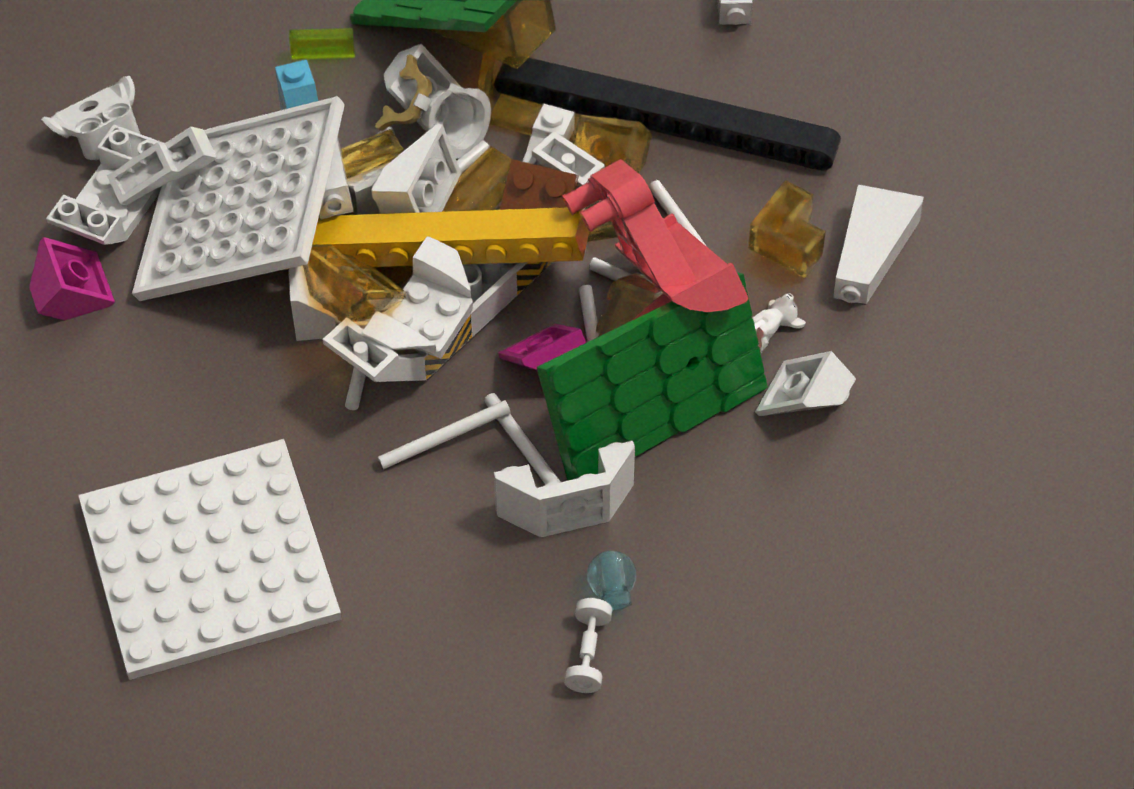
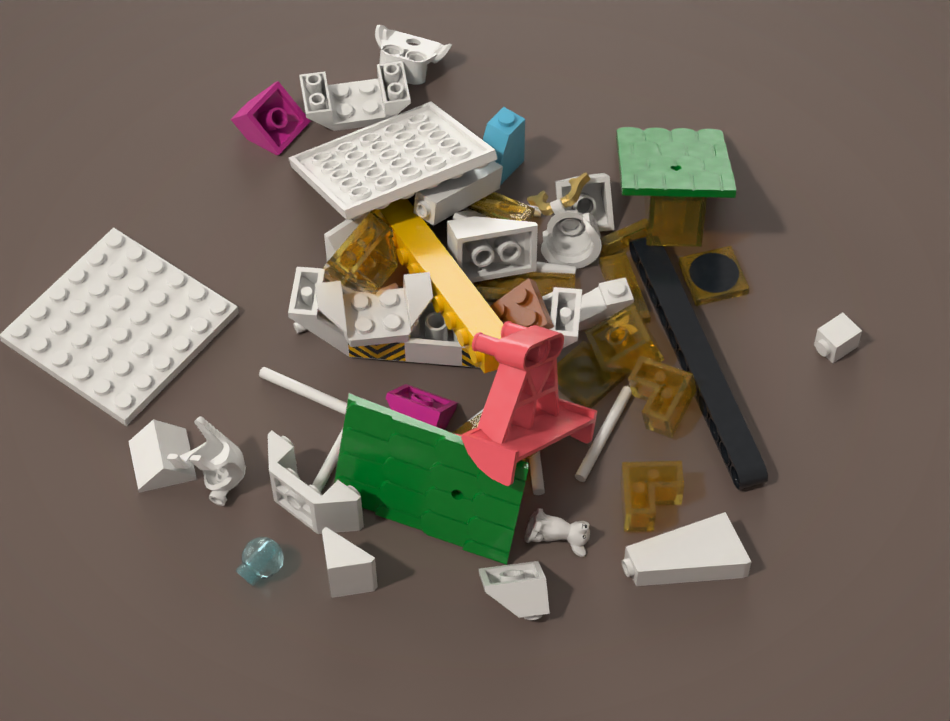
camera: 55 degrees right, 0 degrees up
(162, 164) = (387, 103): white slope -> none
(322, 43) = (577, 128): clear neon green tile -> none
(411, 606) = (150, 454): none -> white slope
(472, 552) = (217, 458): none -> white piece
(582, 677) = (197, 578): white wheel -> none
(584, 44) = (713, 275): none -> tile
(679, 507) = (348, 566): none -> white slope
(692, 149) = (666, 393): none -> clear yellow brick

